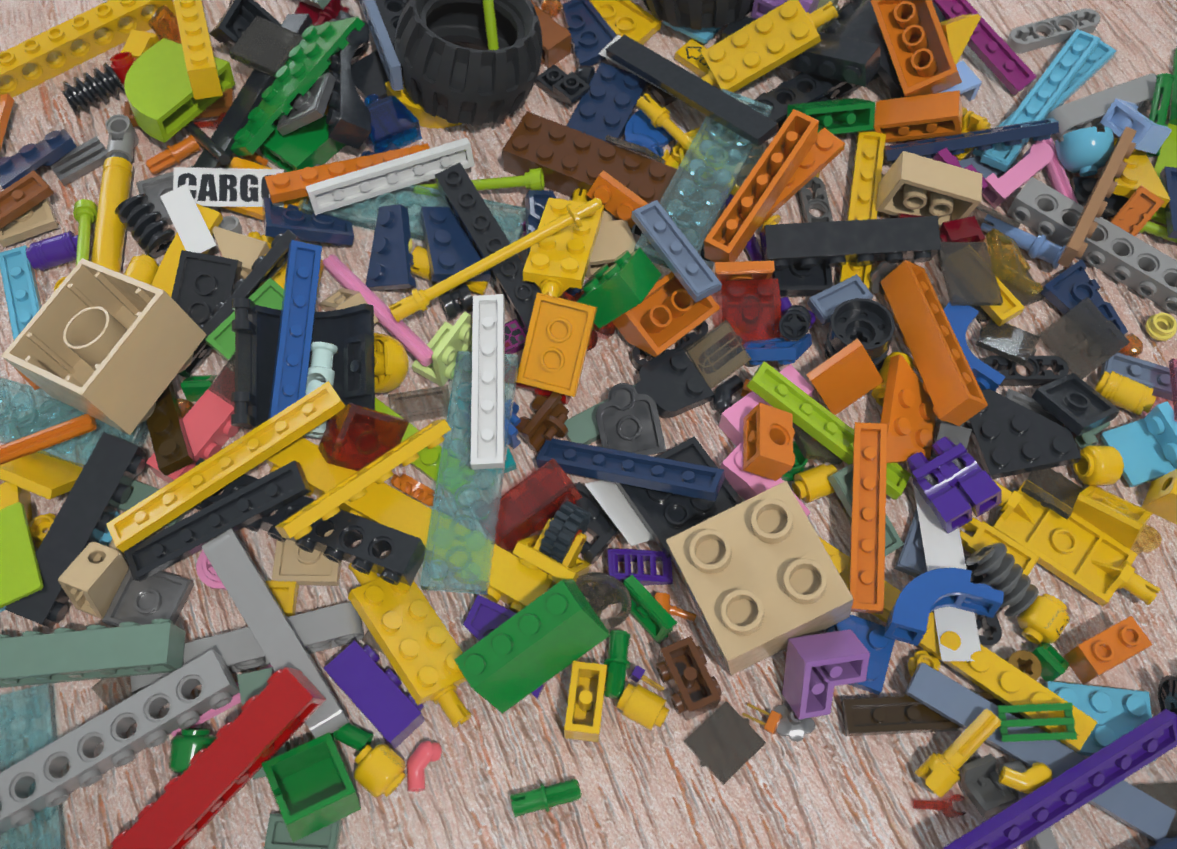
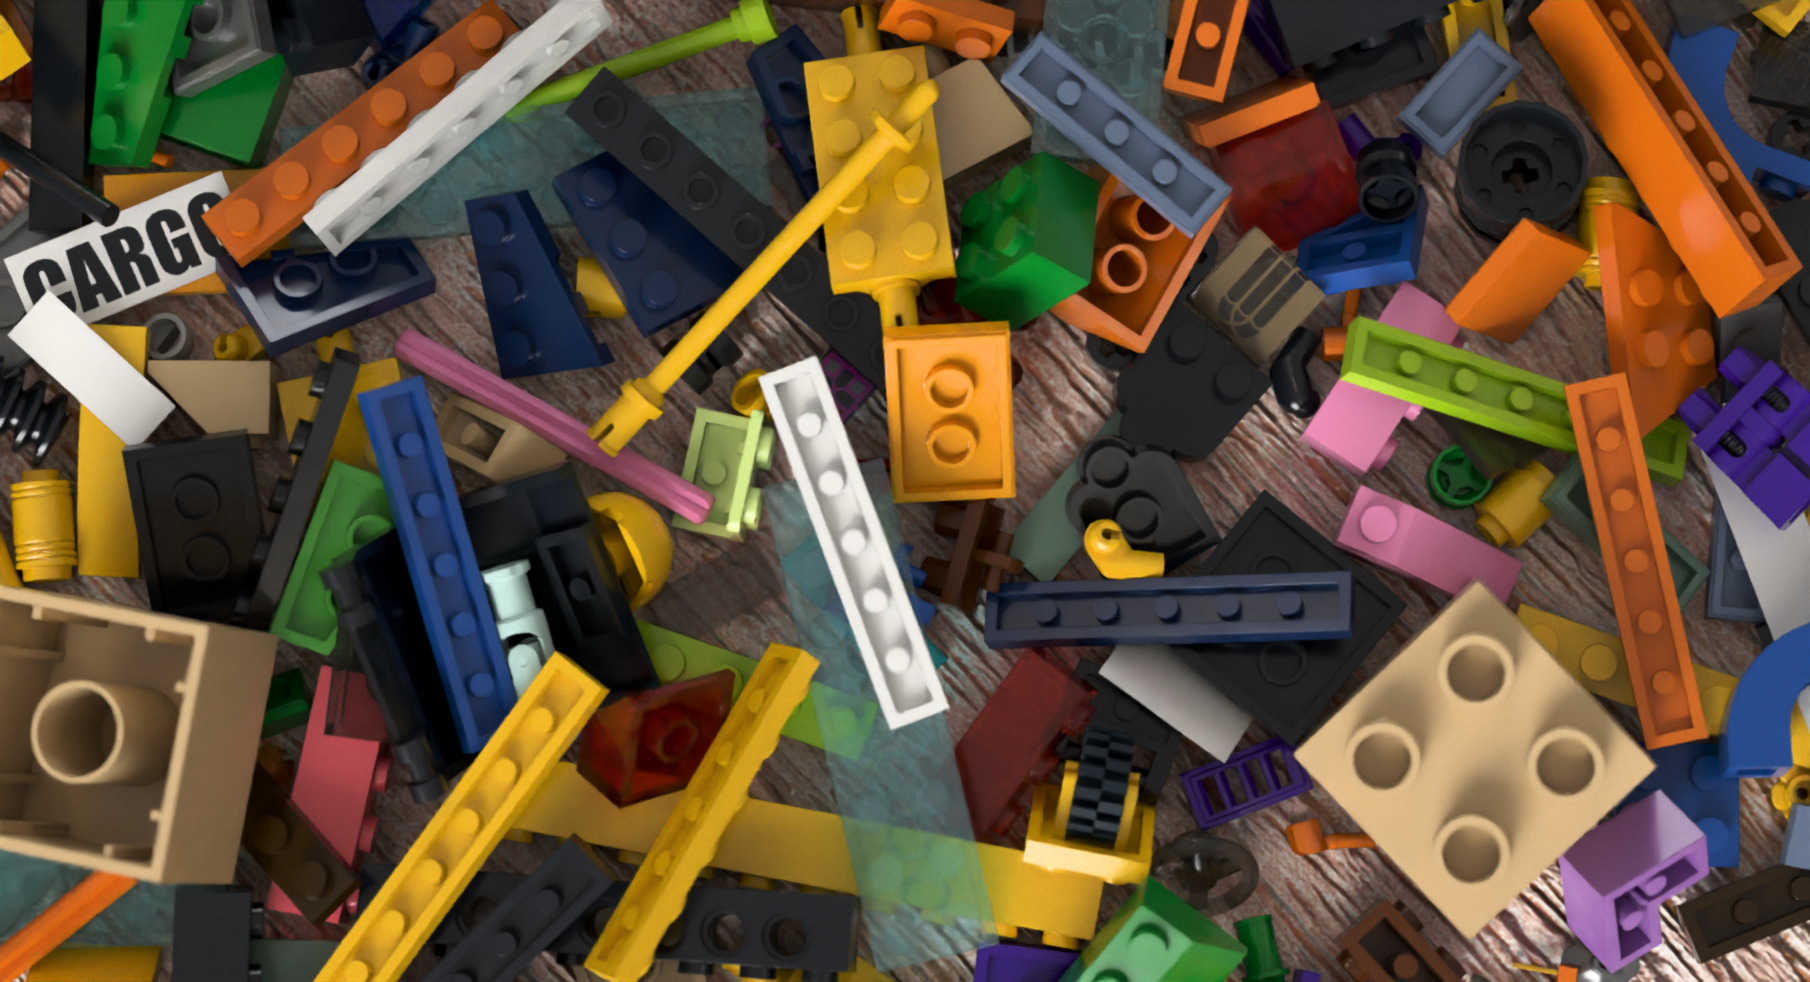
camera: 15 degrees left, 20 degrees up
(414, 488) = (791, 783): orange gear -> none
(611, 435) = (1114, 555): none -> yellow arm
(649, 611) = (1289, 862): green tile -> none
(768, 442) = (1405, 510): orange brick -> none

